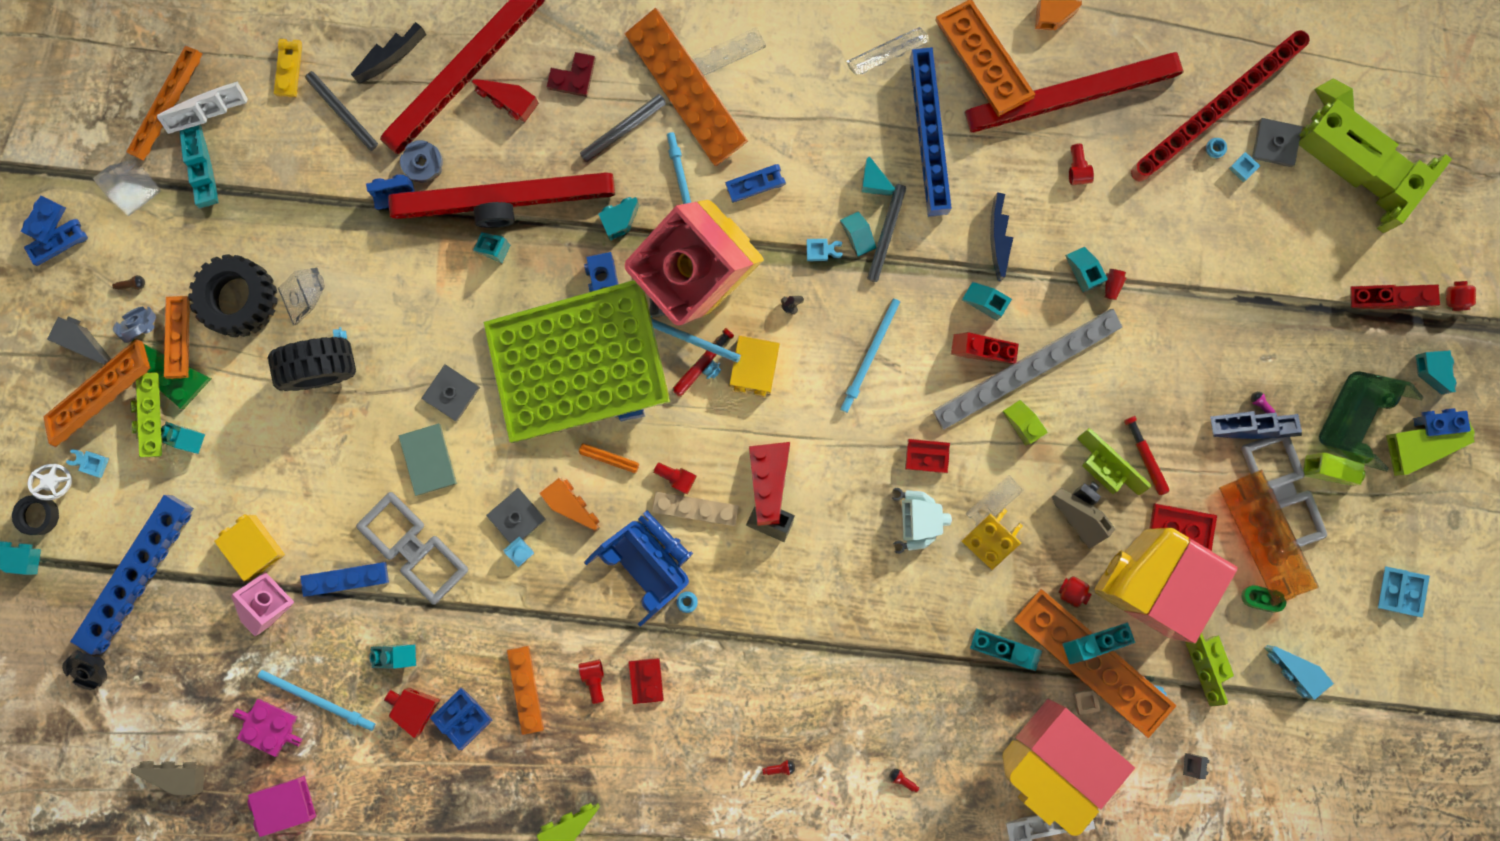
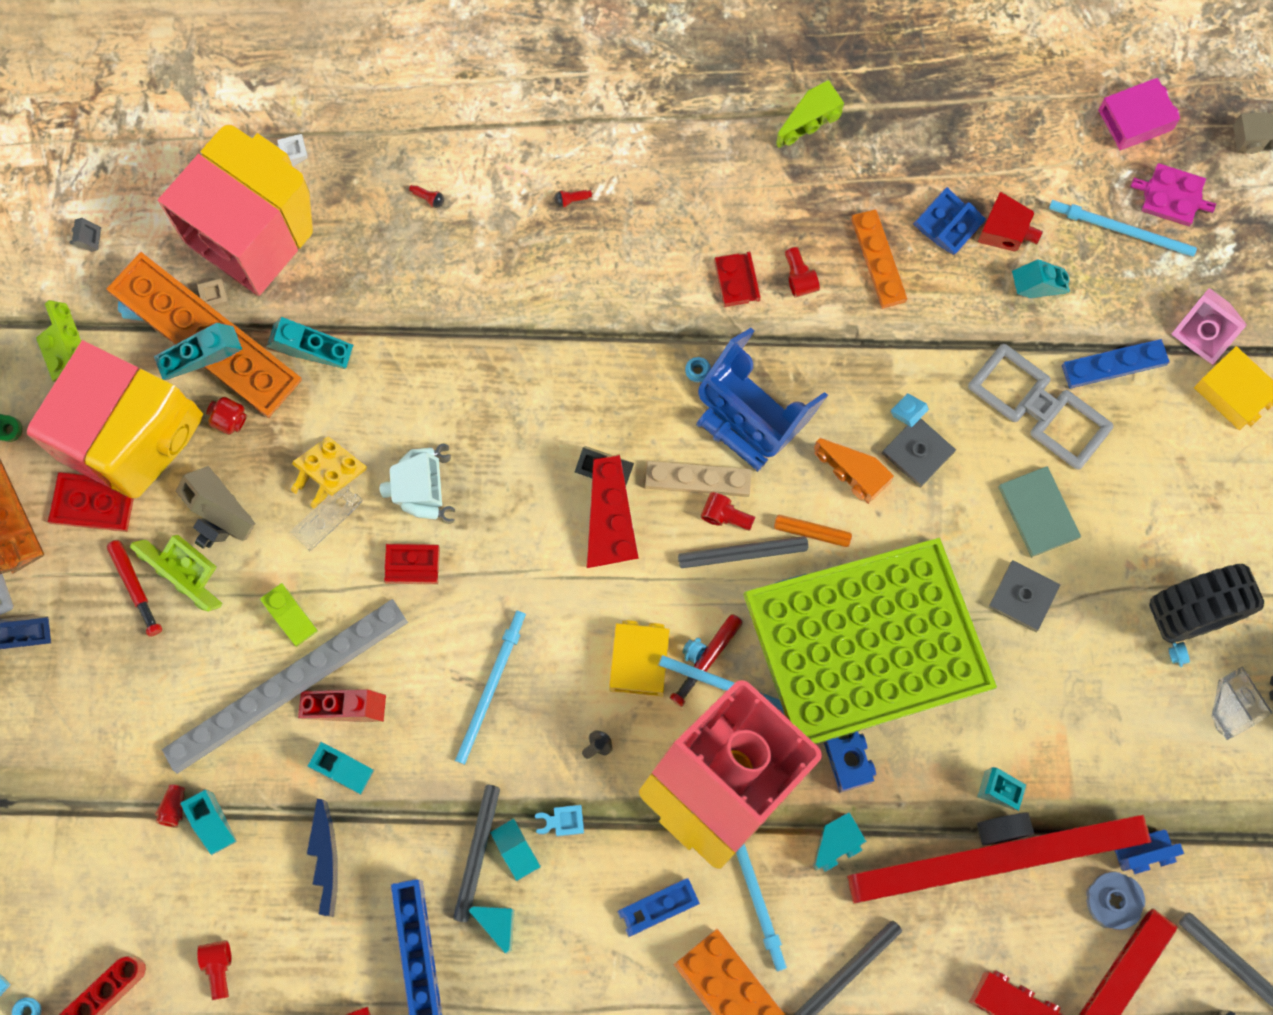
camera: 175 degrees right, 10 degrees down
(665, 445) = (743, 552): none -> dark grey axle

